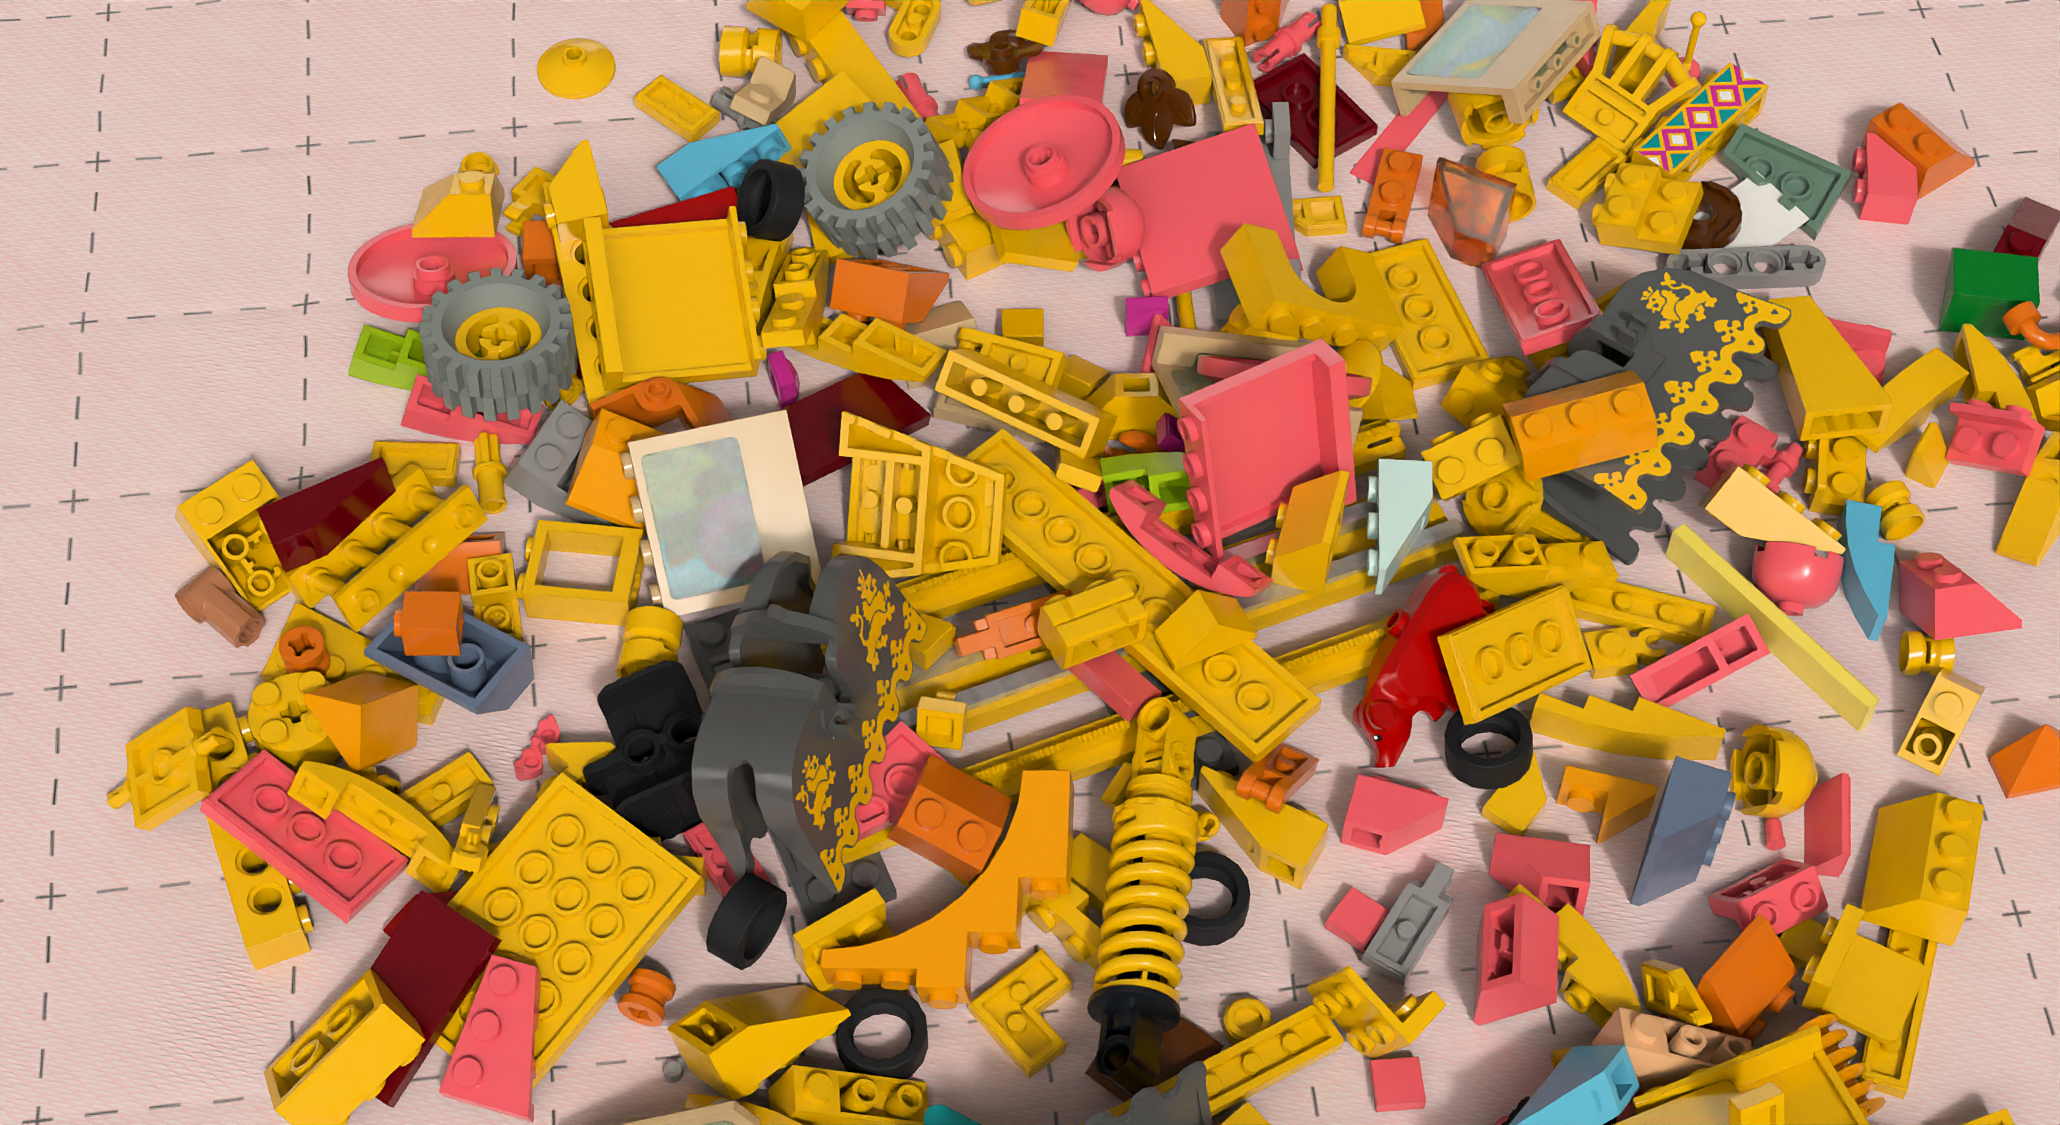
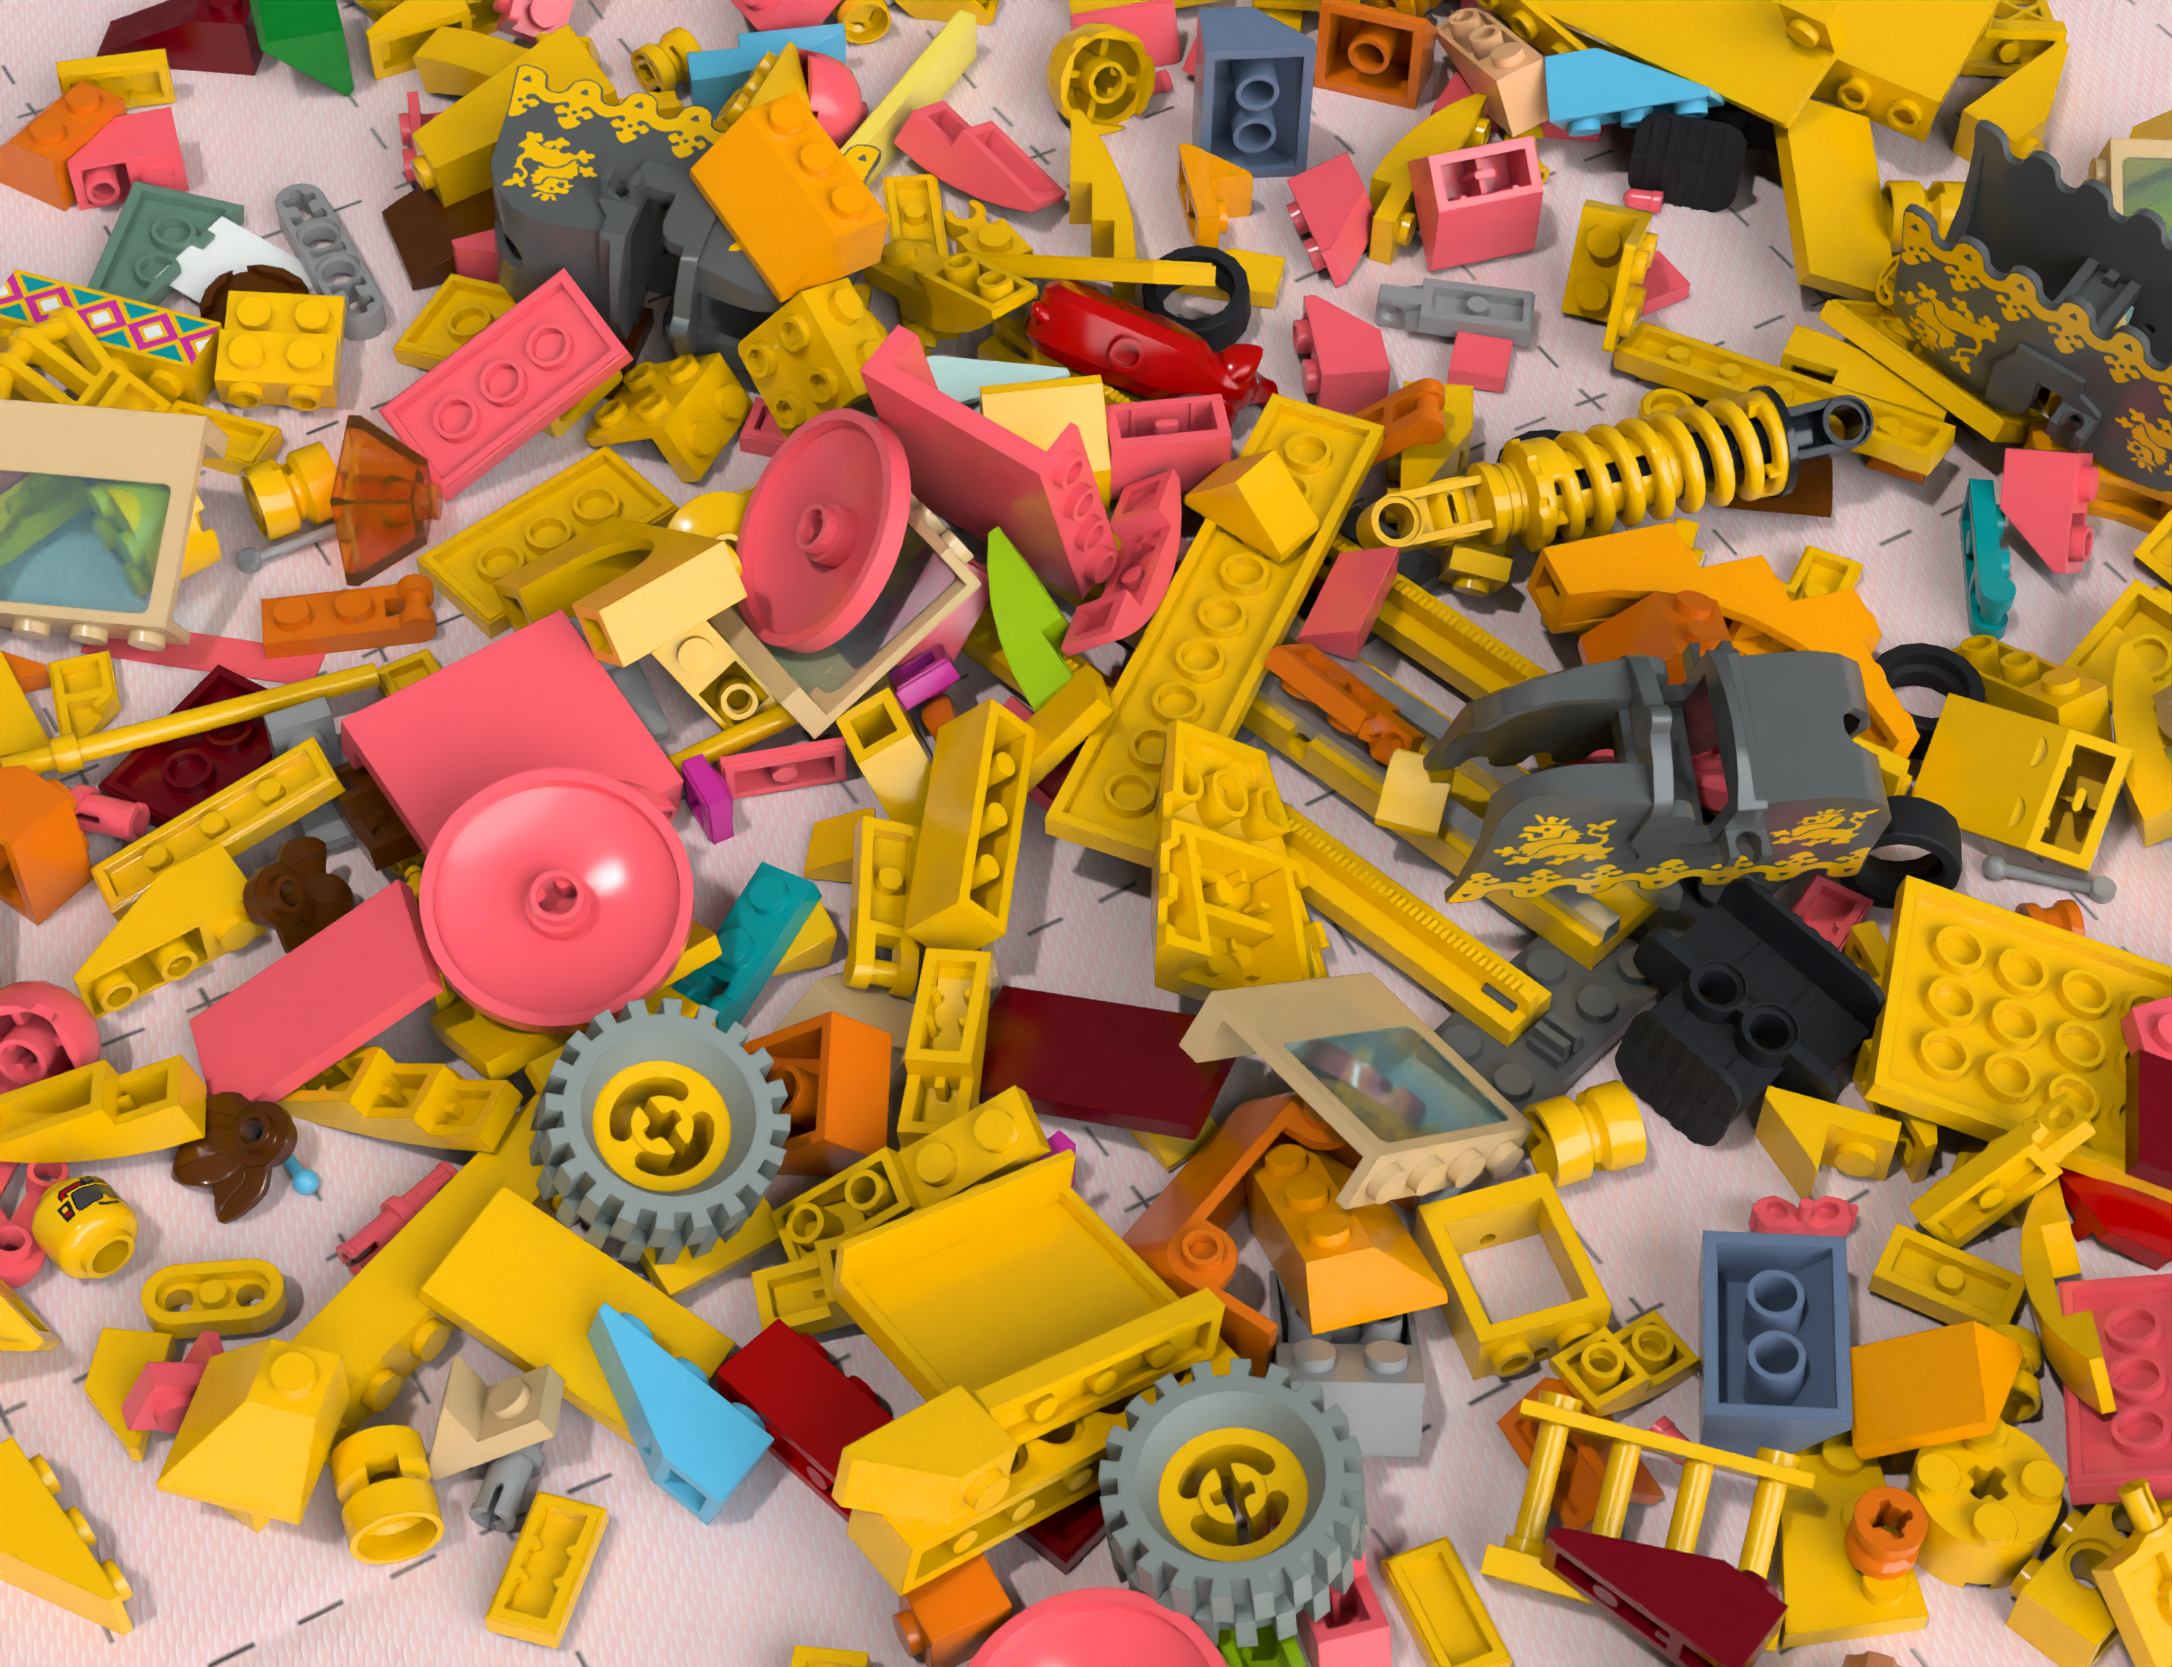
camera: 115 degrees left, 5 degrees down
(430, 623) = (1773, 1330): orange brick -> none
(489, 473) = (1414, 1488): yellow axle -> none
(771, 199) = (796, 1285): black tyre -> none
(1018, 296) = (752, 943): none -> teal plate
(1091, 622) = (1323, 593): yellow brick -> none
(1308, 612) = (1167, 435): none -> coral slope
(1672, 993) = (1422, 83): yellow tile -> none
(1977, 191) = (138, 77): none -> yellow plate

